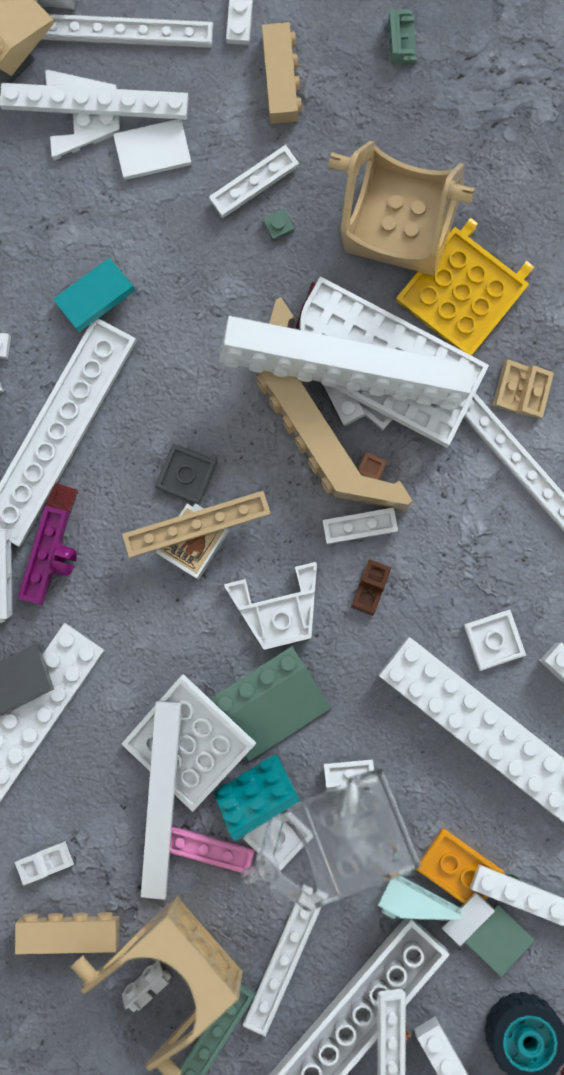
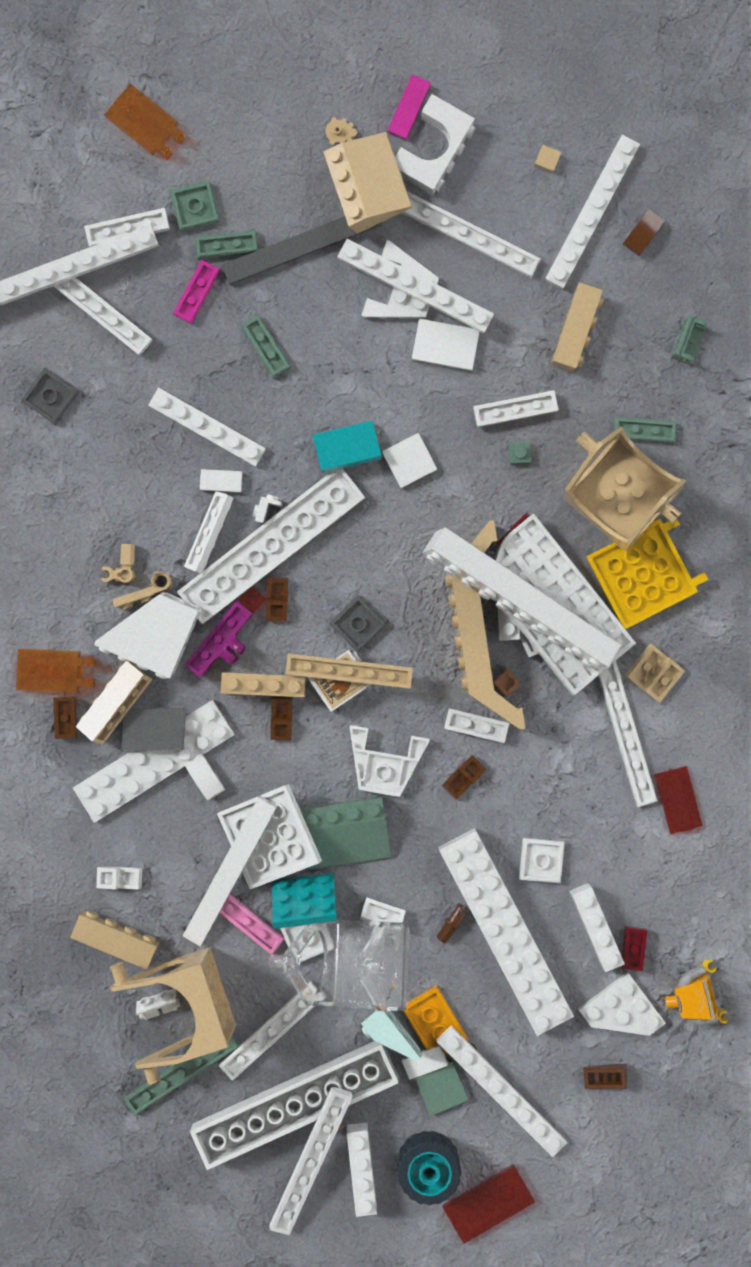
camera: 20 degrees right, 5 degrees up
(32, 398) = (261, 510): none -> white bracket
(88, 486) = (277, 599): none -> reddish brown slope
(91, 710) = (204, 777): none -> white slope
(111, 581) = (263, 684): none -> tan brick
(147, 610) = (281, 718): none -> reddish brown slope
(166, 282) = (409, 460): none -> white tile
(406, 142) = (647, 429): none -> sand green tile
(429, 751) = (452, 923): none -> reddish brown axle

